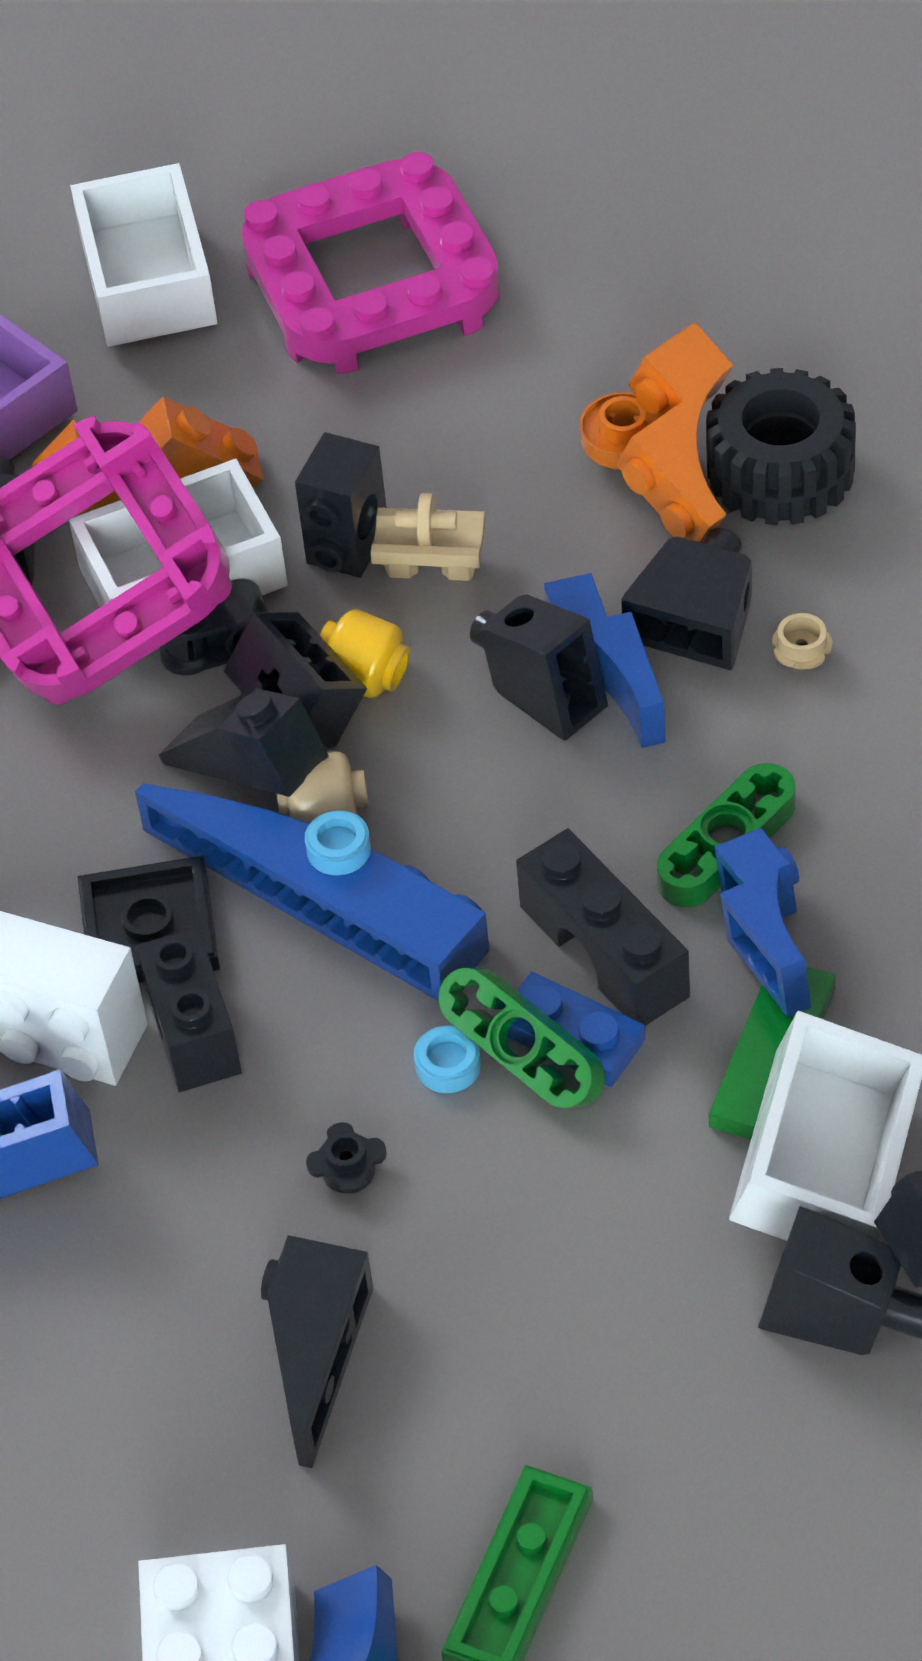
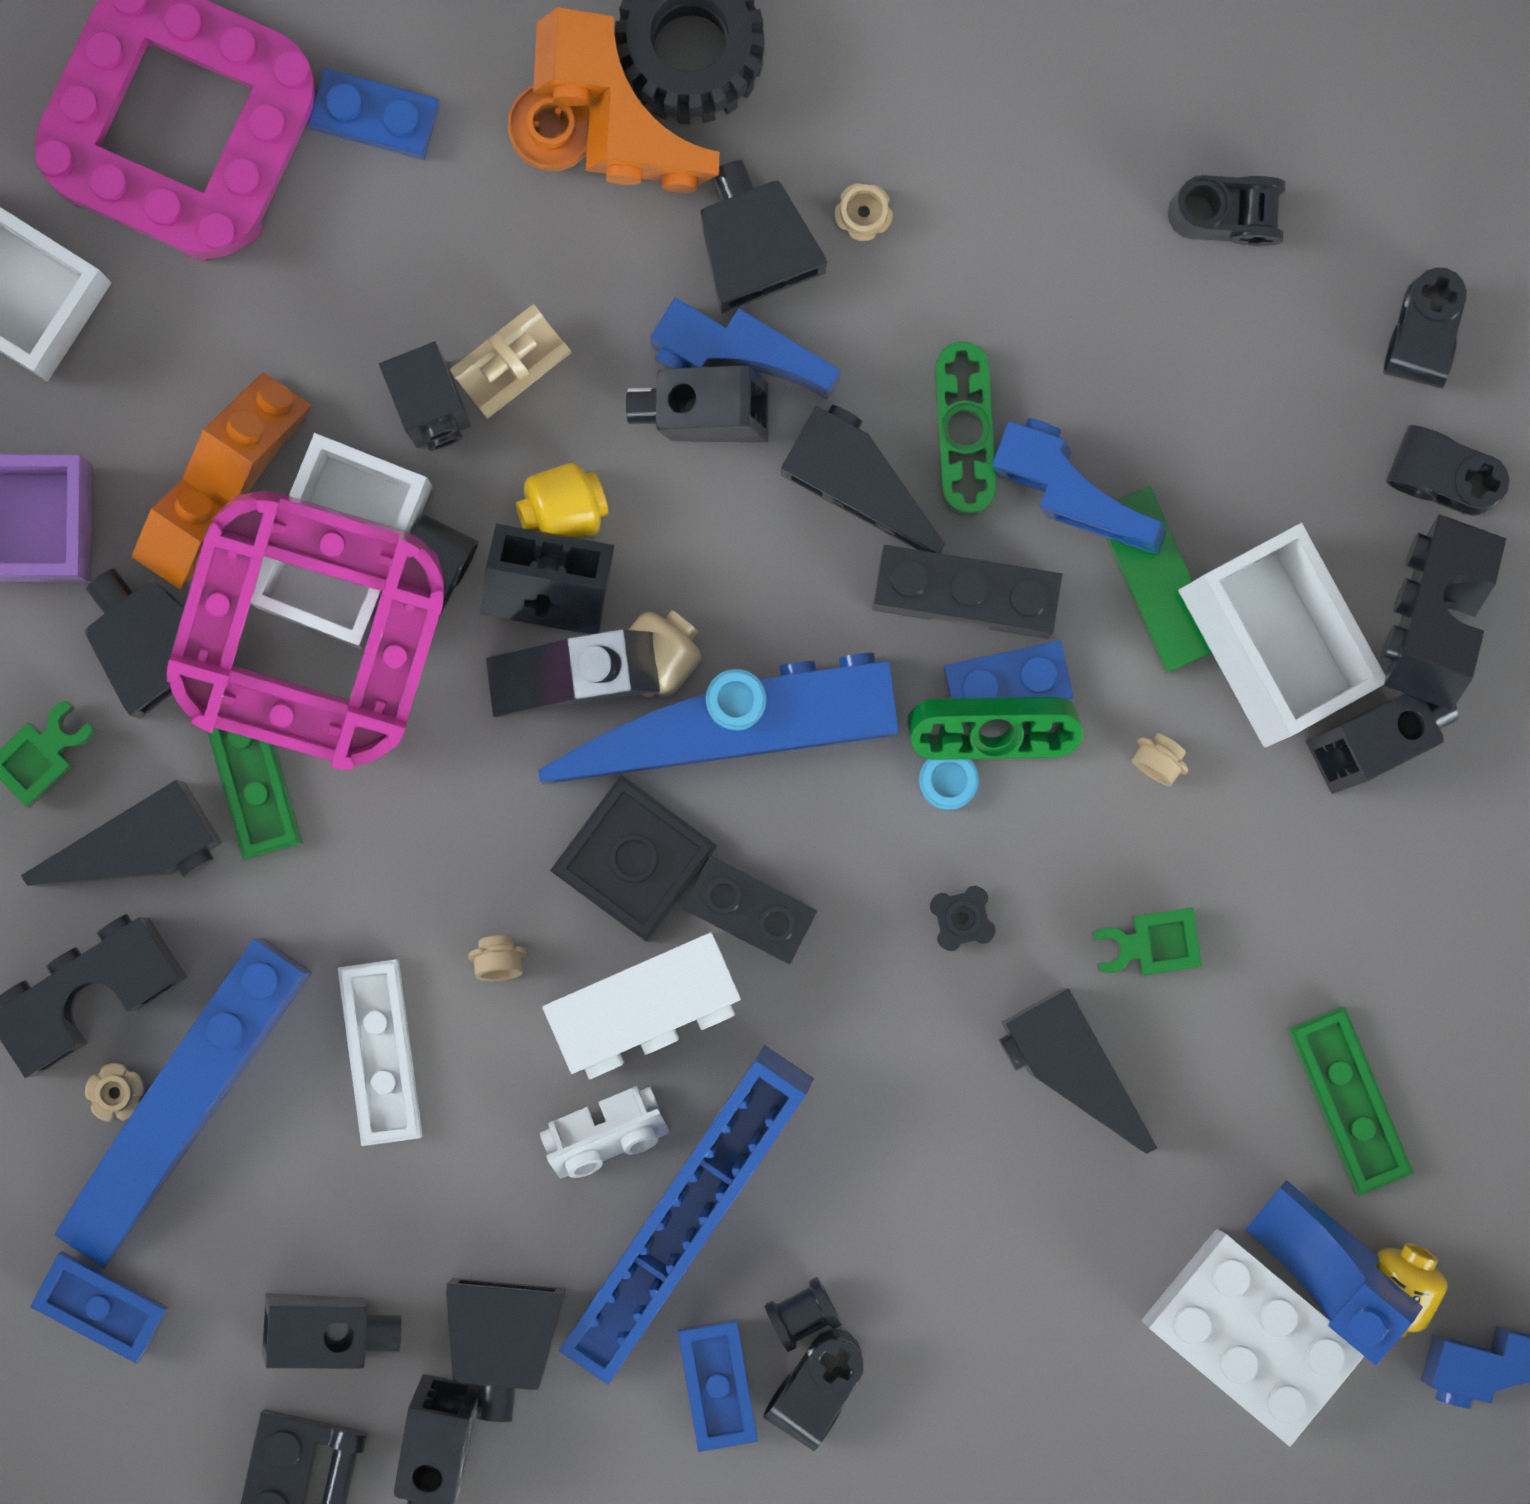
camera: 55 degrees left, 35 degrees up
(481, 1304) = (1159, 942): none -> green plate
(509, 354) = (374, 114): none -> blue plate
(600, 784) = (852, 473): none -> black slope
(634, 1172) = (1160, 759): none -> tan plate

